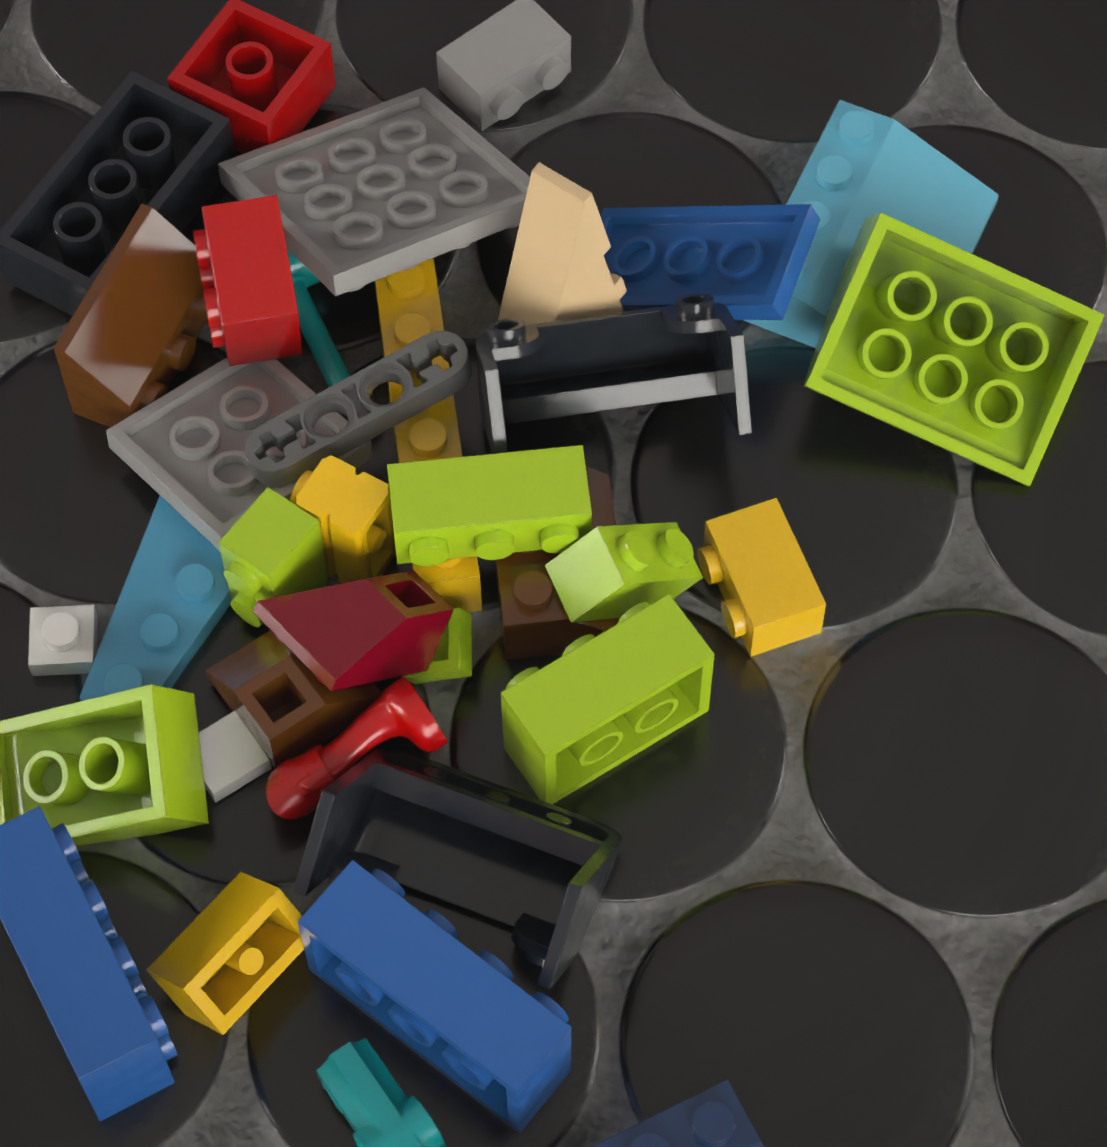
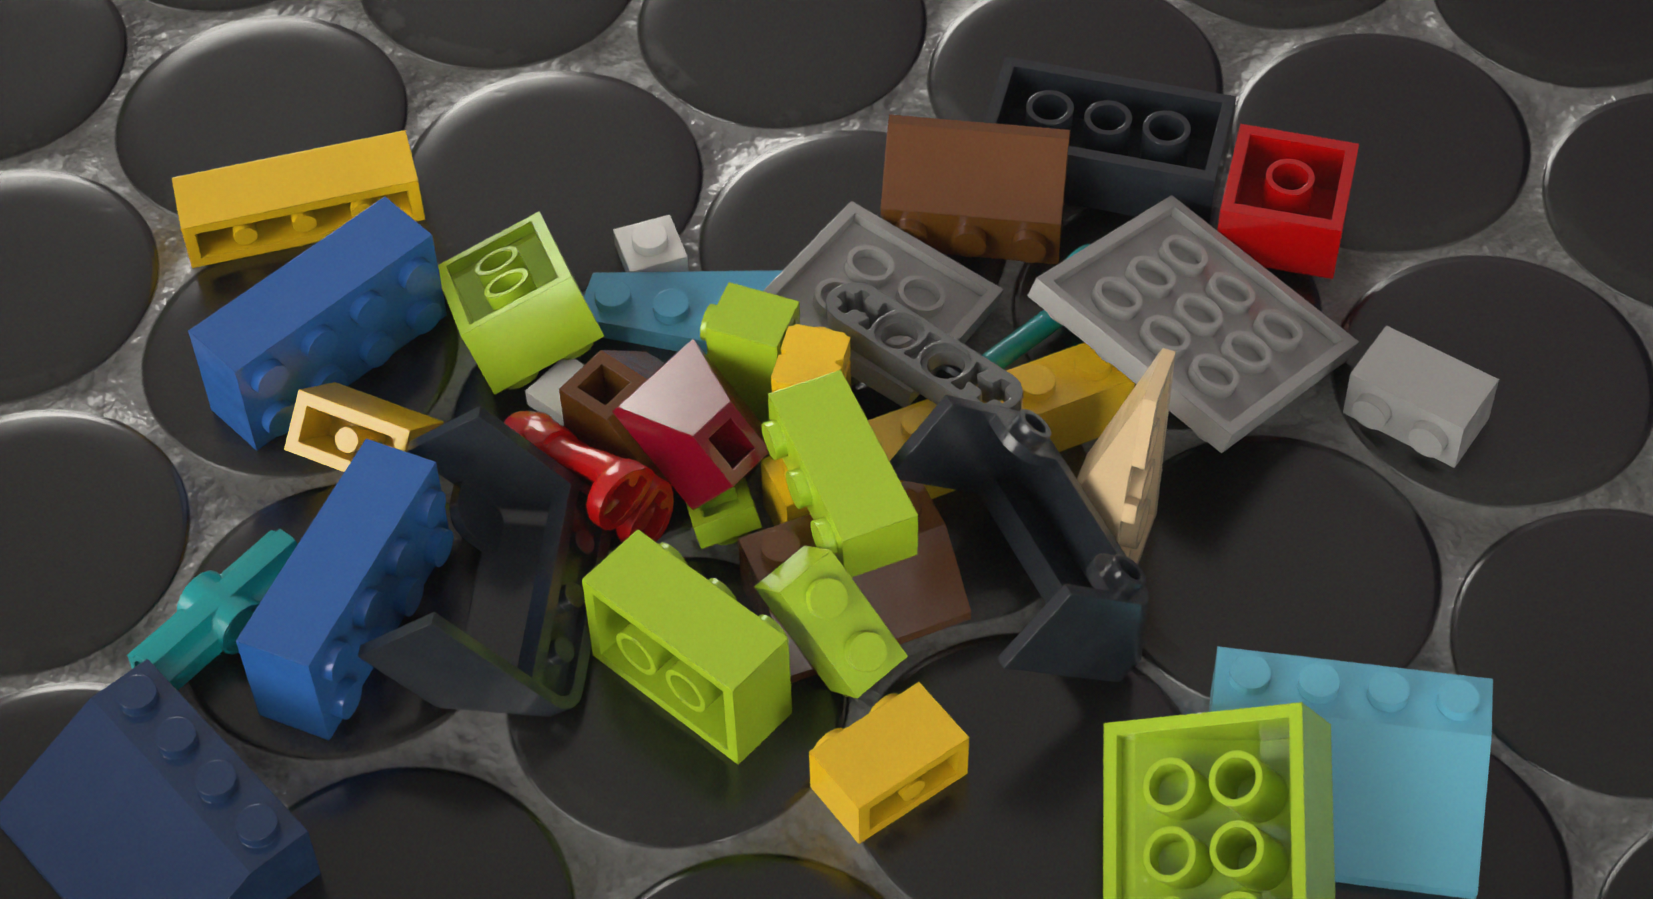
camera: 75 degrees right, 10 degrees down
(248, 281) = (1018, 229): red brick -> none
(735, 253) = (1219, 597): blue plate -> none

